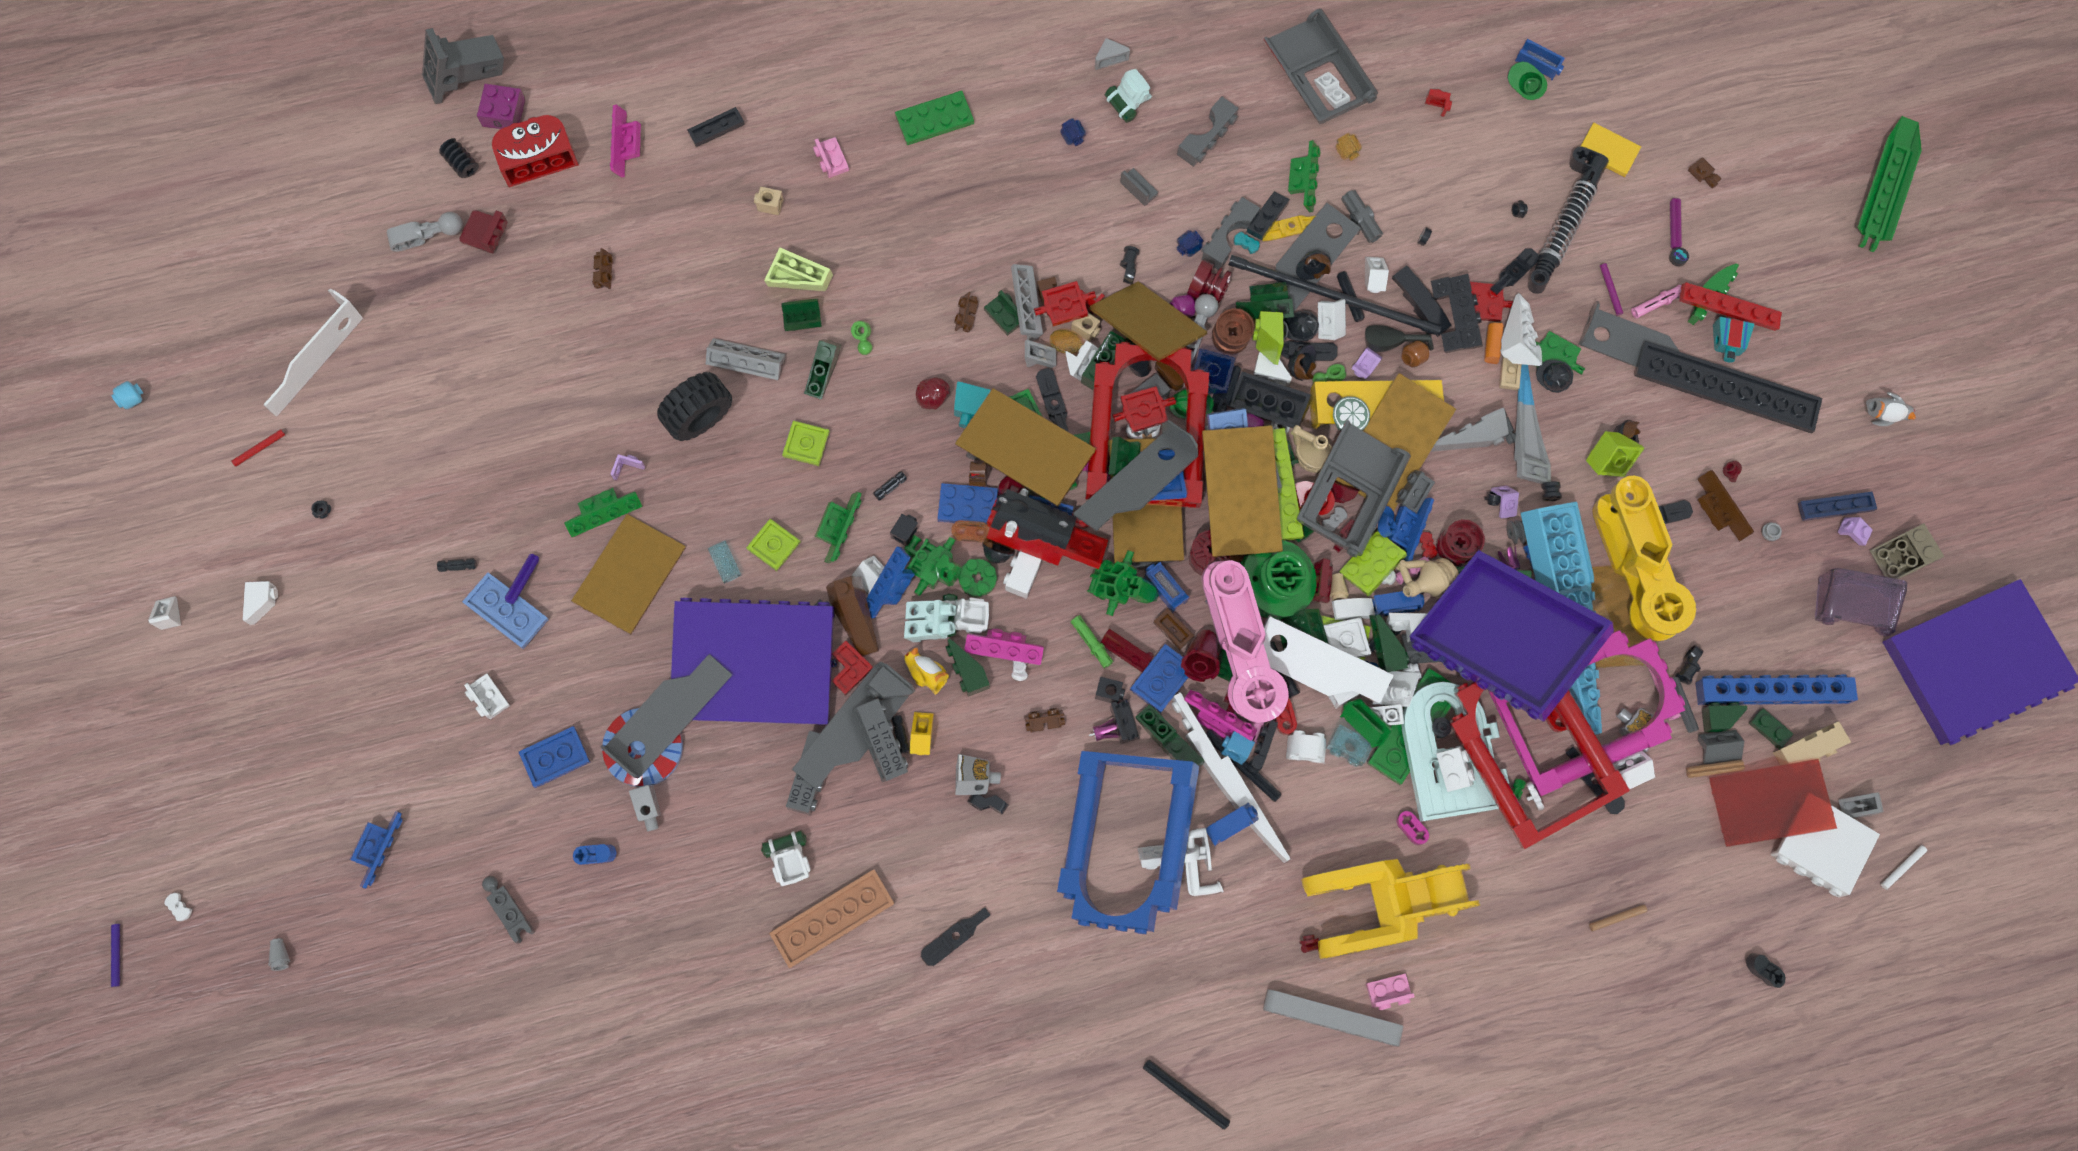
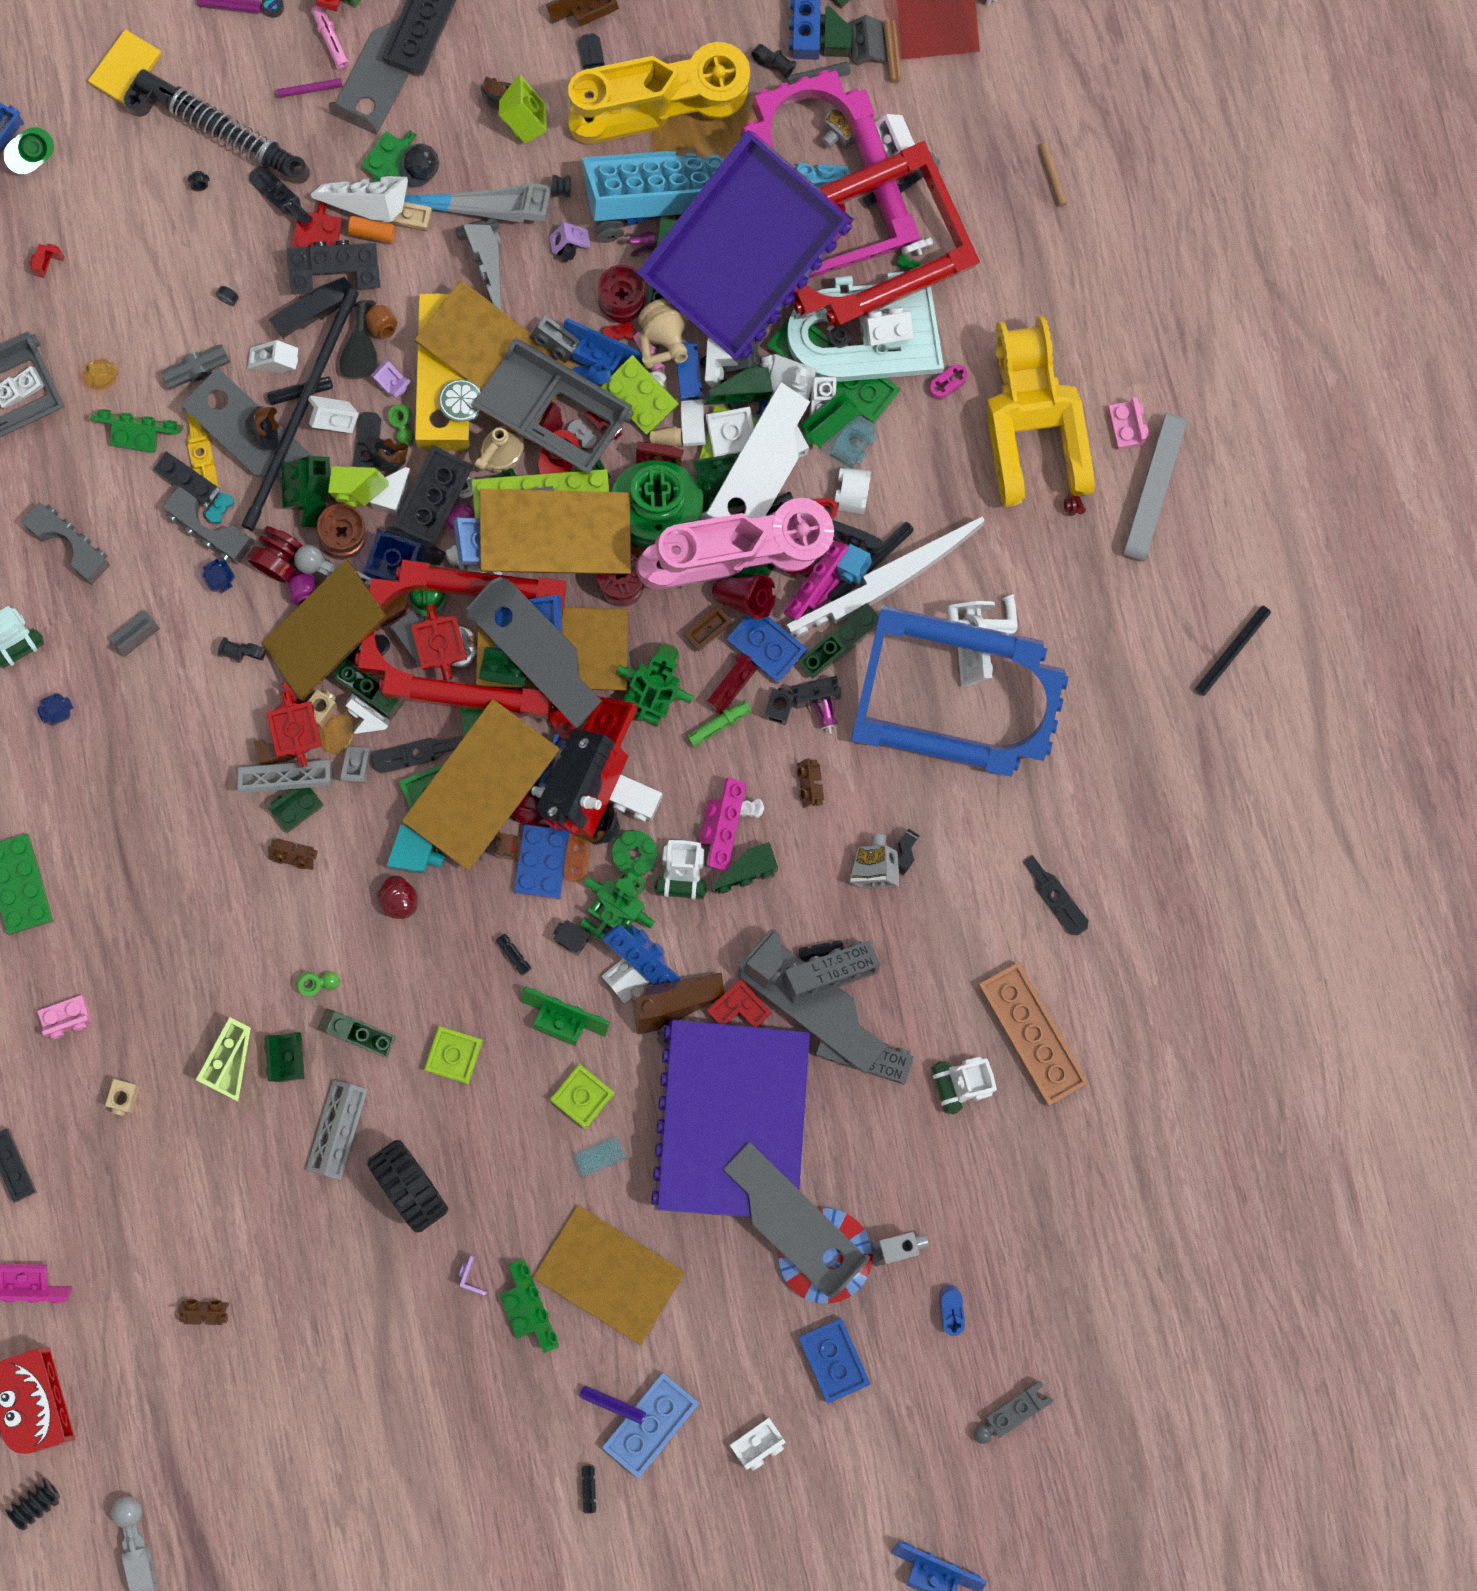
camera: 85 degrees left, 5 degrees up
(484, 230) = (138, 1468): dark red bracket -> none
(921, 733) = (822, 924): yellow slope -> none
(926, 671) = (748, 917): yellow animal -> none
(929, 620) = (691, 902): light aqua hips -> none
(1166, 586) = (657, 632): blue window -> none
(1232, 823) = (941, 576): blue window -> none
(1302, 326) = (338, 447): black piece -> none
(1765, 970) = (1113, 29): black piece -> none

